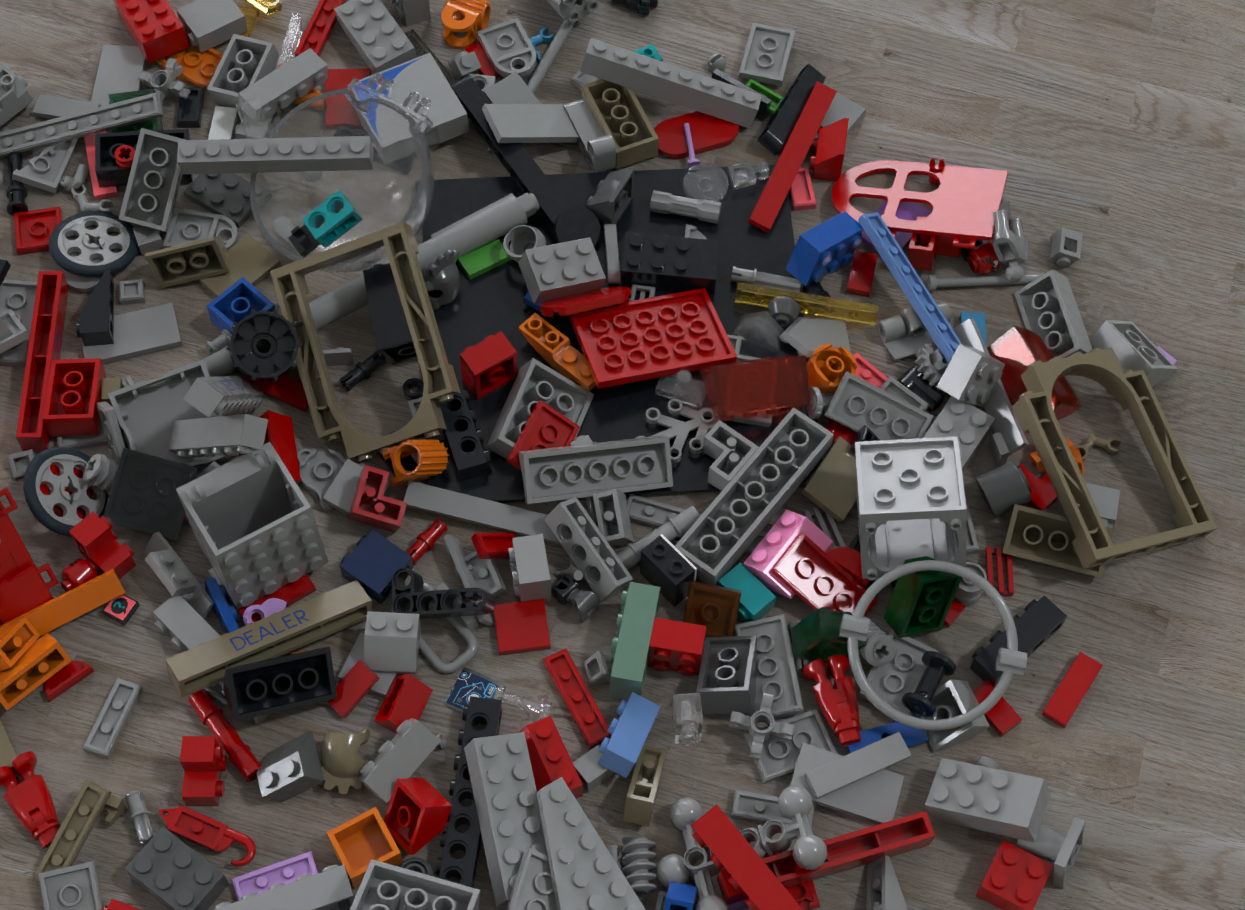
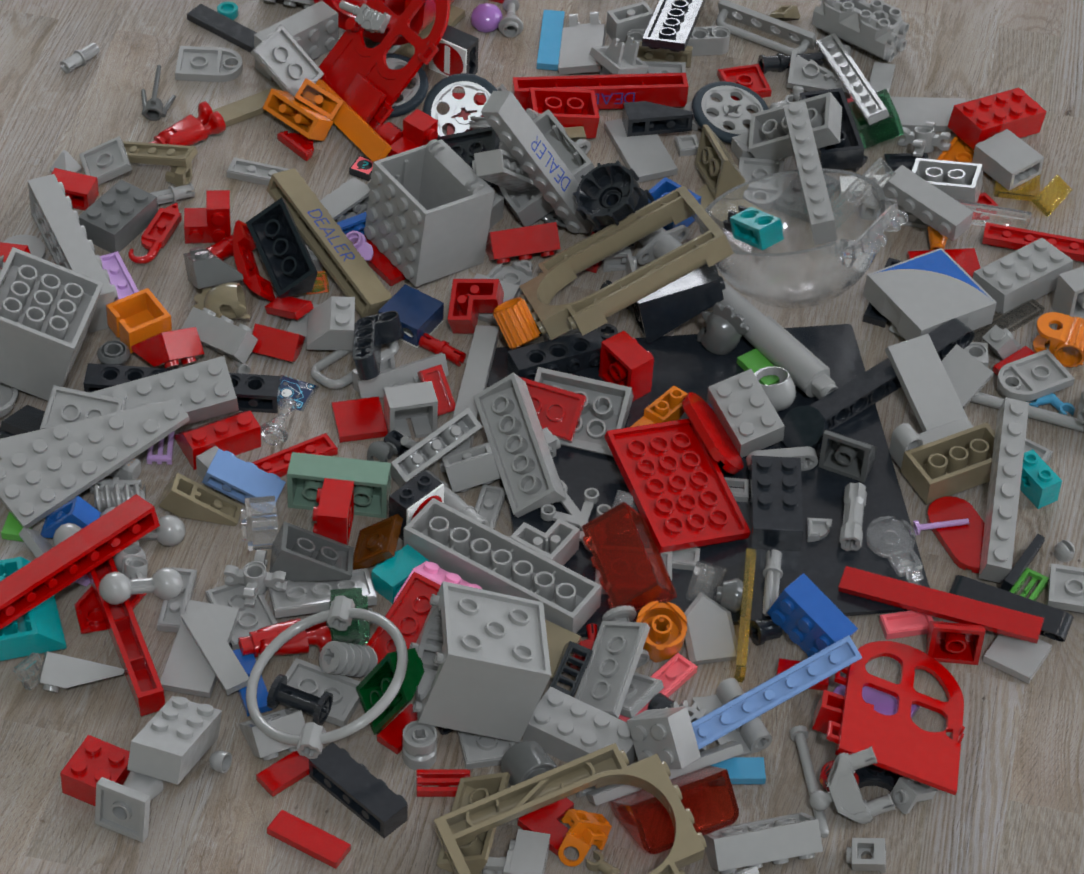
camera: 85 degrees right, 15 degrees down
(314, 720) = (246, 264): none -> red slope

